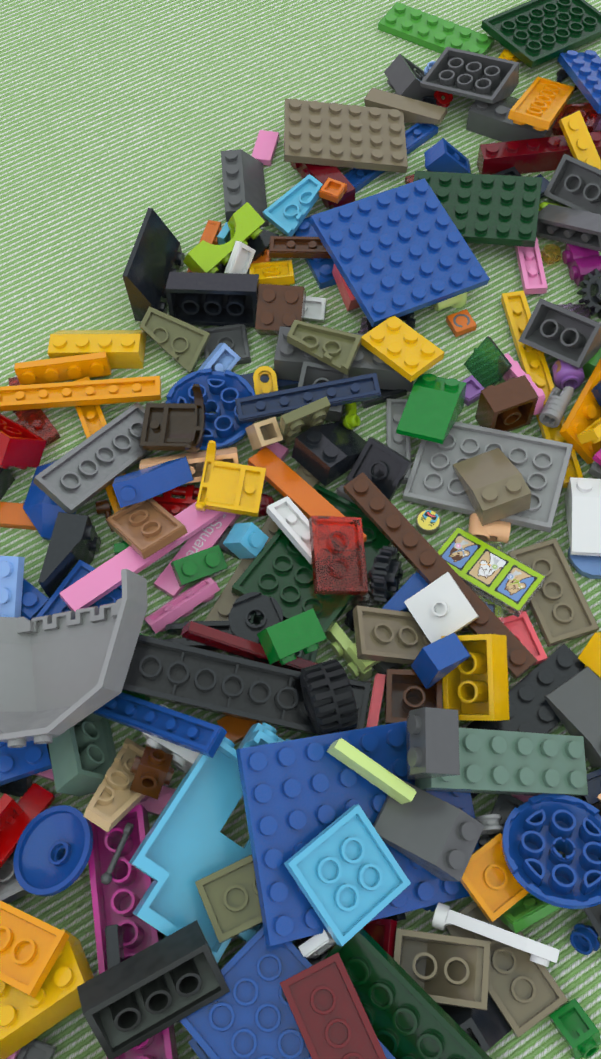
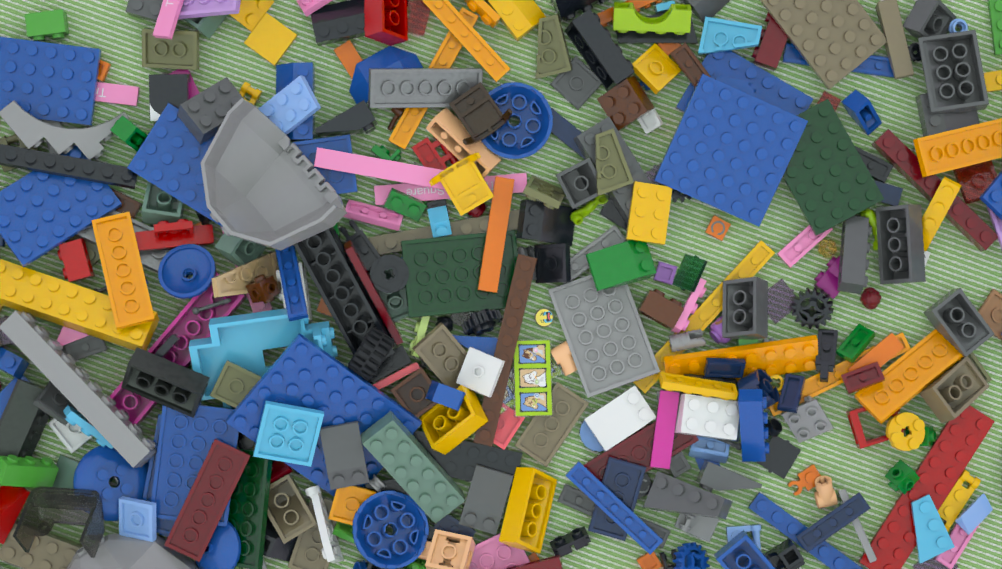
camera: 45 degrees right, 25 degrees up
(146, 527) = (399, 156): medium nougat tile -> none
(151, 481) = (428, 132): blue slope -> none
(221, 359) = (555, 92): light blue slope -> none
(240, 259) = (641, 41): white tile -> none
(264, 433) = (519, 173): tan brick -> none
(270, 386) = (558, 142): yellow plate -> none
(284, 401) = (564, 181): dark blue tile -> none
(291, 636) = (392, 304): green brick -> none
(293, 524) = (468, 249): white plate -> none
(317, 945) = (246, 441): white tile -> none
(333, 190) = (759, 55): orange tile -> none
(338, 555) = (466, 288): clear red plate -> none
(371, 771) = (345, 408): yellowish green tile -> none
(432, 743) = (378, 430): dark grey slope -> none
(493, 486) = (591, 340): dark tan slope -> none

